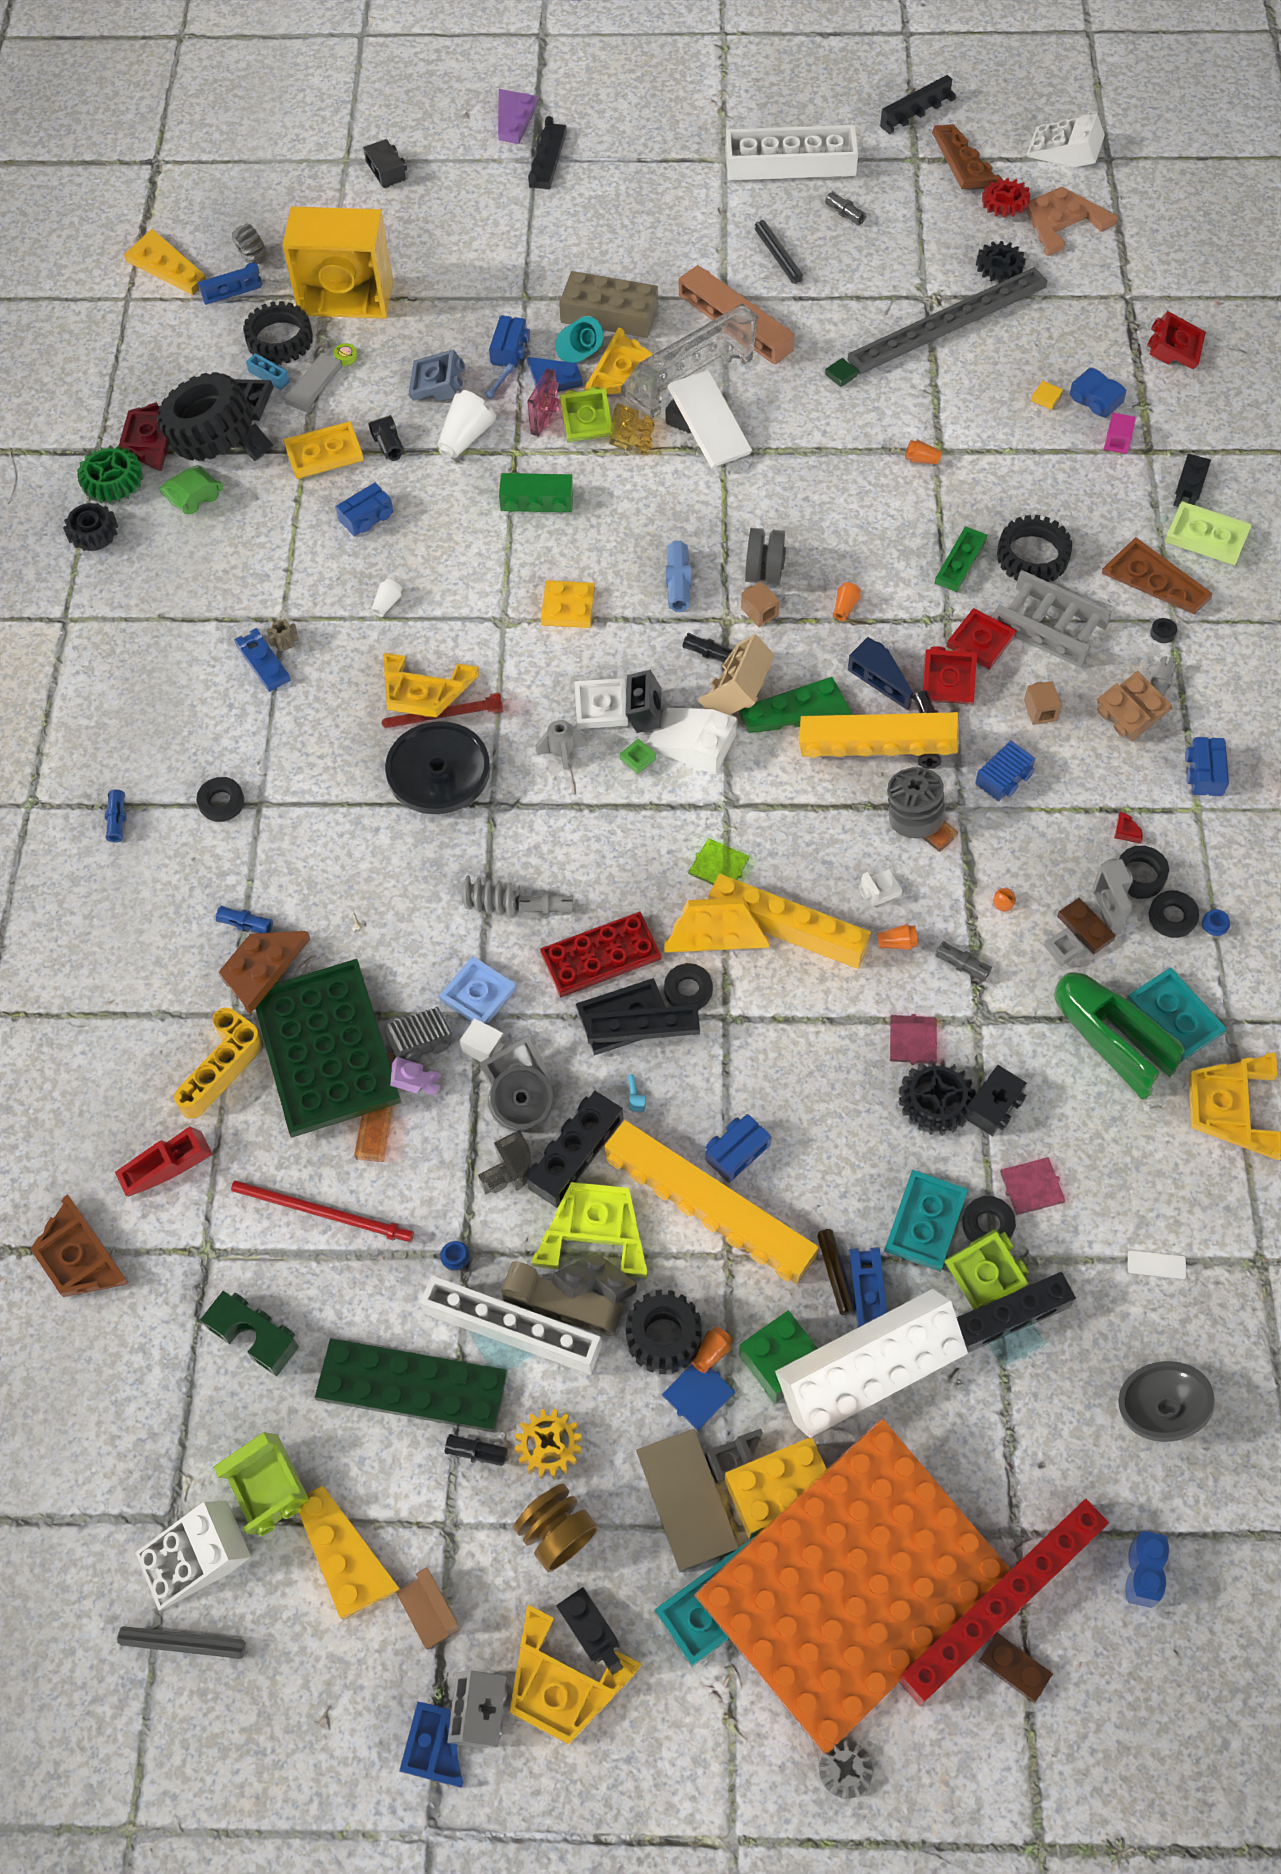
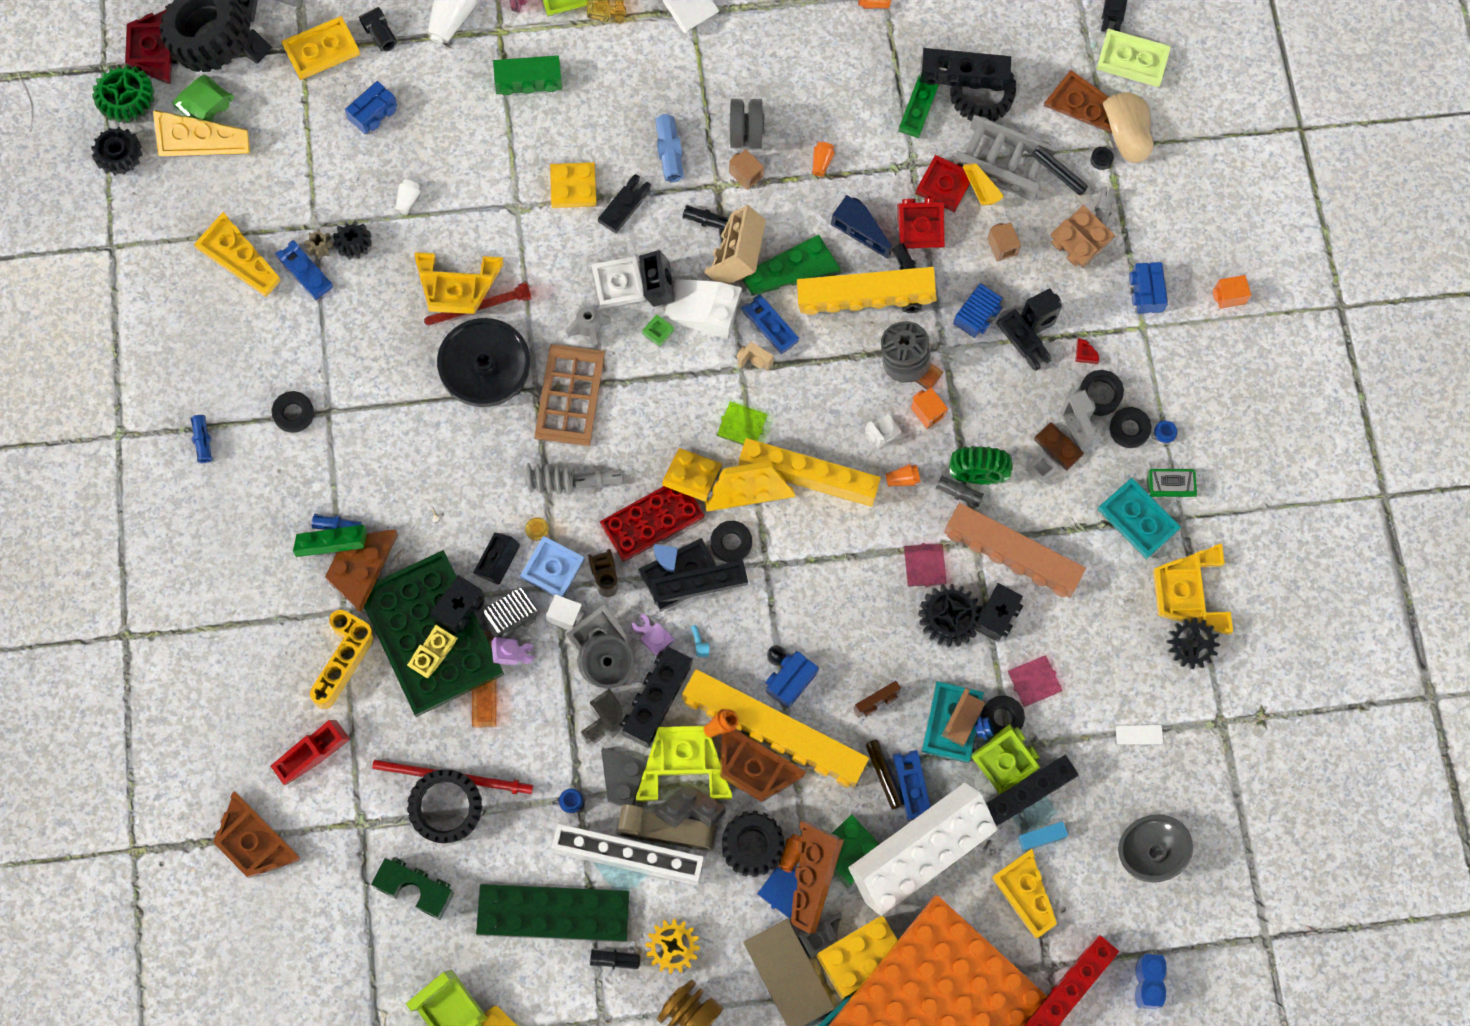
camera: 15 degrees left, 10 degrees up
(172, 519) = (195, 136): none -> yellow wing
(191, 635) = (233, 252): none -> yellow wing
(232, 934) = (330, 540): none -> green plate
(278, 1220) = (415, 801): none -> black tyre
(319, 633) = (352, 239): none -> black gear
(324, 1065) = (432, 652): none -> light yellow slope
(360, 1016) = (458, 593): none -> black brick
(417, 976) = (497, 558): none -> black slope
(466, 948) = (536, 528): none -> clear yellow plate
(515, 855) = (565, 436): none -> medium nougat piece
(519, 1234) = (621, 776): none -> dark grey wing
(535, 1001) = (603, 569): none -> dark brown piece
(581, 1082) = (654, 637): none -> lavender plate
(609, 992) = (666, 556): none -> medium blue tile
(620, 628) = (623, 205): none -> black hinge
(646, 1184) = (723, 722): none -> orange cone
(652, 908) = (692, 474): none -> yellow plate
(679, 1242) = (755, 767): none -> dark orange wing
(719, 1121) = (773, 658): none -> black hinge
(732, 1378) = (817, 863): none -> dark orange wing
(745, 791) = (758, 356): none -> tan bracket
(765, 762) = (770, 324): none -> blue plate
(828, 1186) = (869, 705): none -> reddish brown plate
(937, 867) = (928, 407): none -> orange brick
(938, 1214) = (963, 718): none -> medium nougat panel
(964, 1230) = (984, 728): none -> blue plate
(991, 932) = (981, 465): none -> green gear
(997, 1439) = (1026, 894): none -> yellow wing
(1001, 899) = (985, 432): orange hinge -> none
(1016, 522) = (975, 63): none -> black brick
(1022, 1033) = (1014, 550): none -> nougat brick
(1023, 641) = (983, 187): none -> yellow slope
(1024, 1370) = (1042, 836): none -> dark azure piece
(1056, 806) = (1023, 338): none -> black hinge
(1078, 776) = (1042, 310): none -> black brick
(1088, 1003) = (1065, 517): green piece -> none
(1113, 635) = (1059, 170): none -> black axle
(1199, 599) = (1130, 125): none -> tan hair
(1219, 978) = (1172, 483): none -> slope
(1245, 1164) = (1192, 655): none -> black gear

